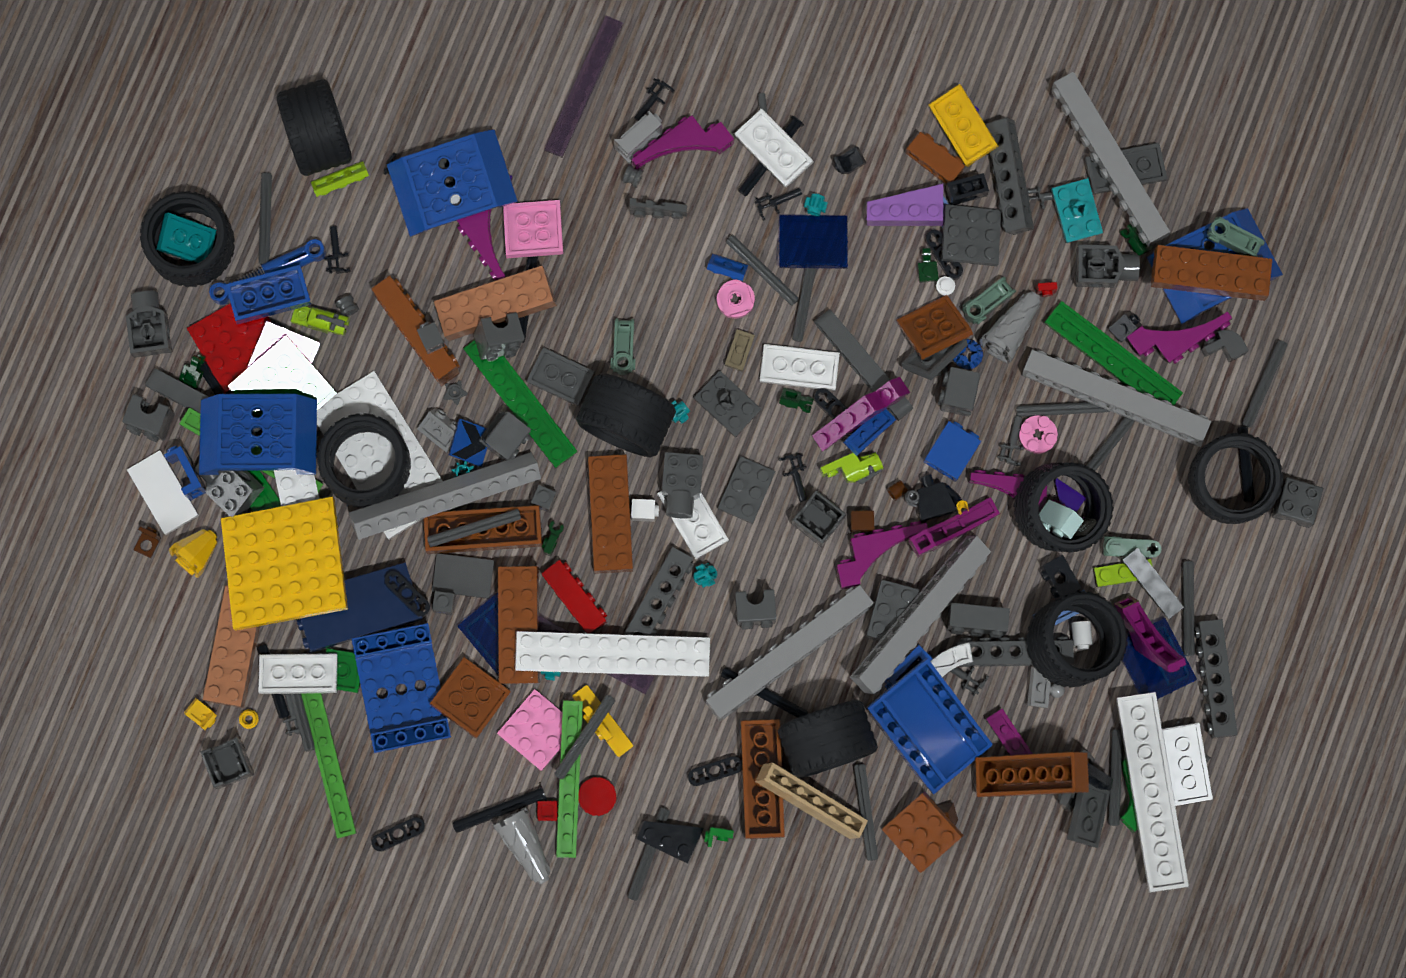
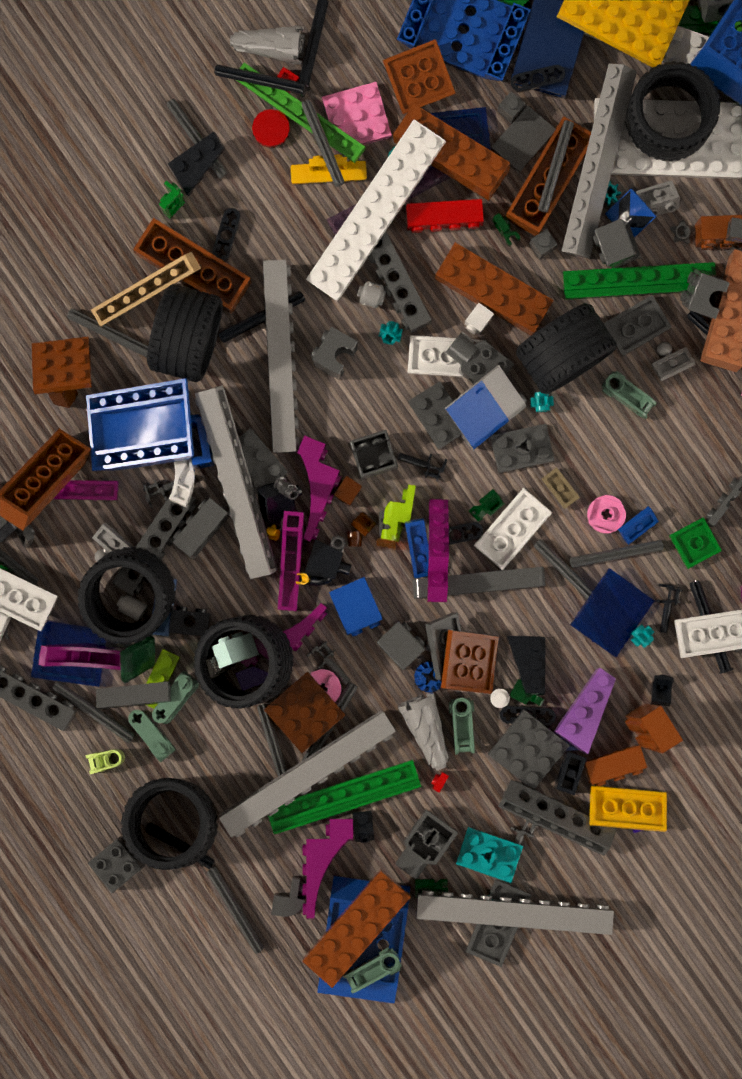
camera: 125 degrees right, 5 degrees up
(563, 830) = (261, 79): none -> black axle
(572, 327) = (672, 362): none -> light grey plate
(684, 612) = (371, 294): none -> light grey head
(710, 212) = (695, 543): none -> green plate
(716, 452) = (486, 407): none -> blue door
(880, 490) = (363, 523): none -> reddish brown tile
(885, 461) = (388, 544): none -> clear orange tile
(891, 142) = (653, 728): none -> dark orange brick
(899, 280) = (530, 662): none -> black wing
(912, 572) = (274, 500): none -> black torso
(1067, 433) = (304, 712): none -> reddish brown plate
(1123, 596) = (137, 659): none -> clear green tile
(1174, 545) = (151, 735): none -> sand green piece
(1222, 571) = (101, 760): none -> yellowish green piece

